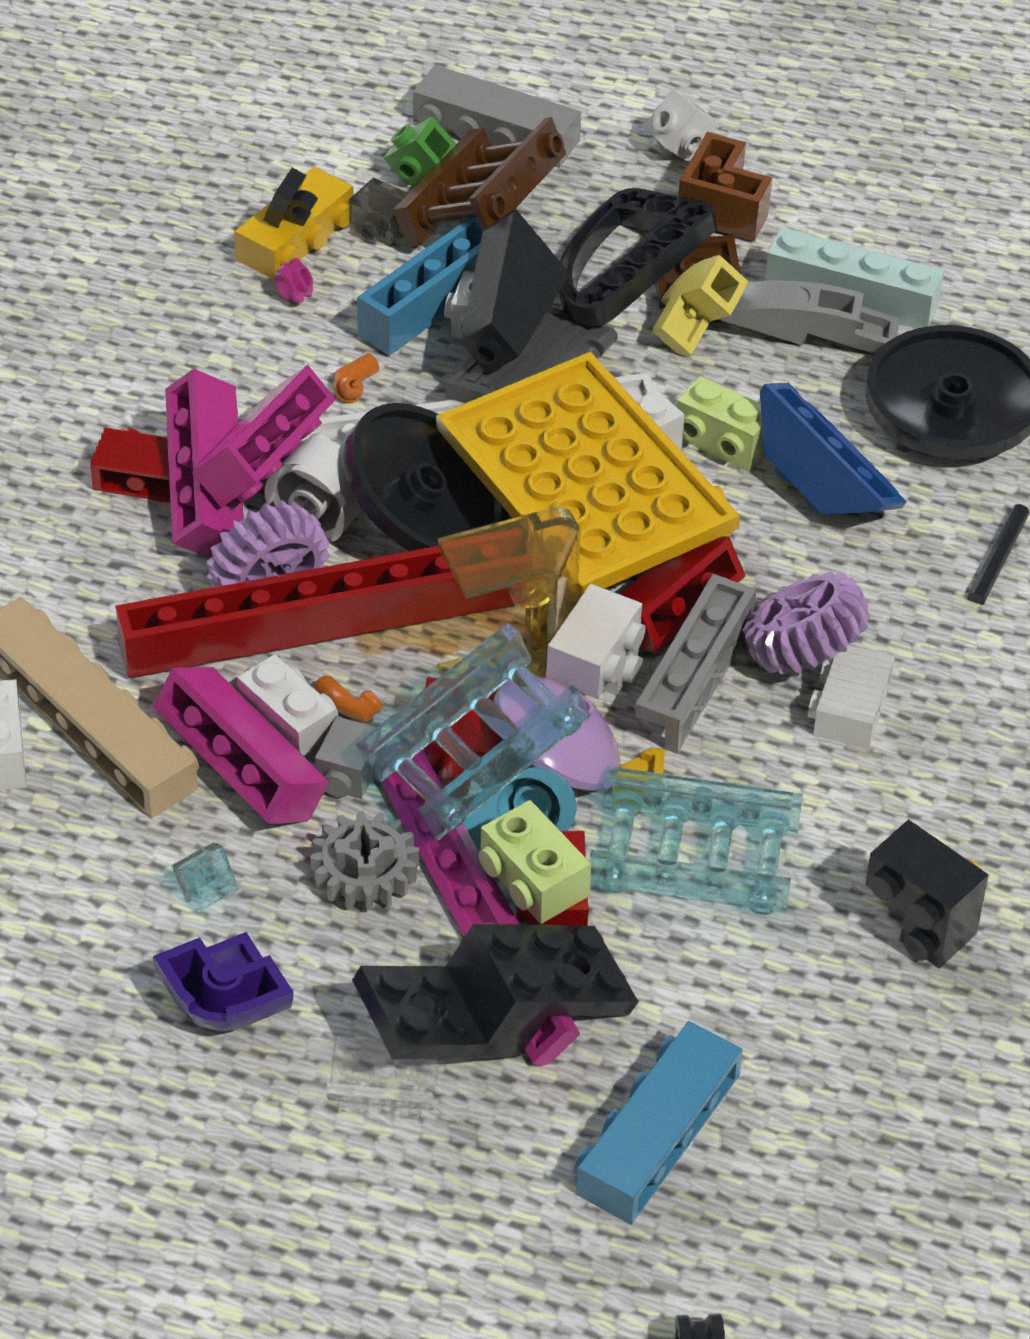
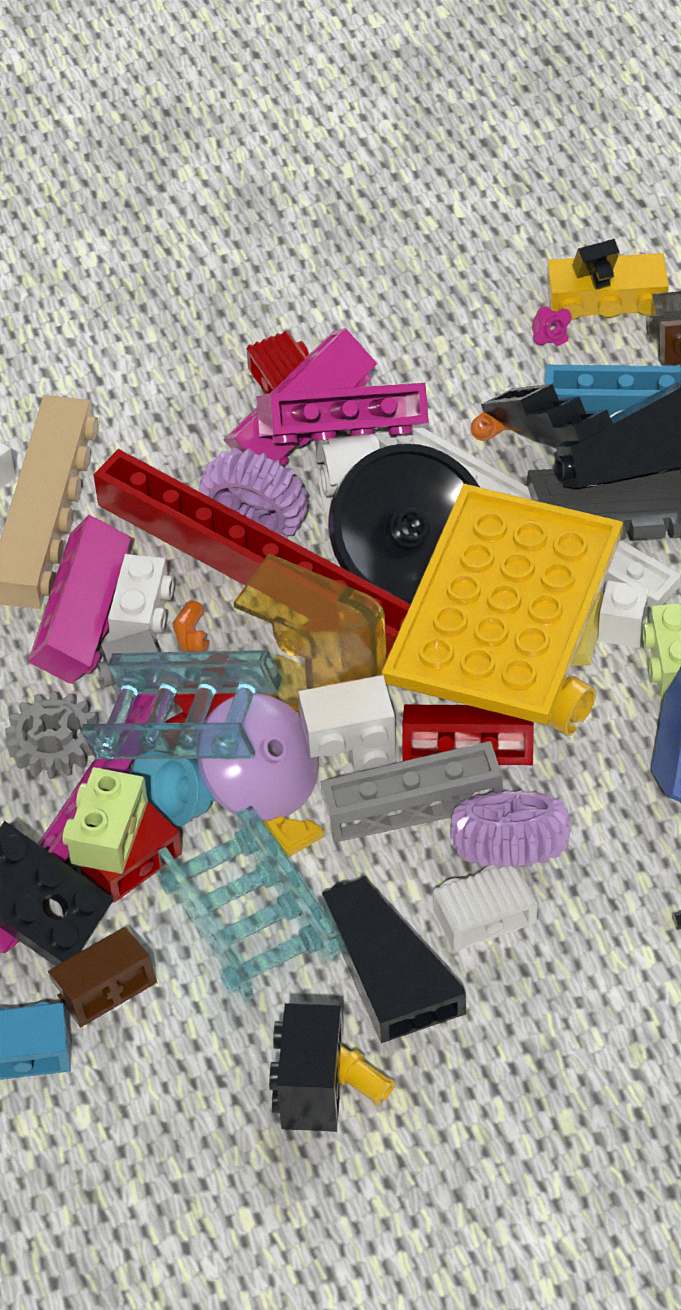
camera: 55 degrees right, 5 degrees up
(406, 331) = (544, 415): none -> black slope
(669, 981) = (103, 976): none -> reddish brown hinge
(850, 786) = (391, 967): none -> black slope

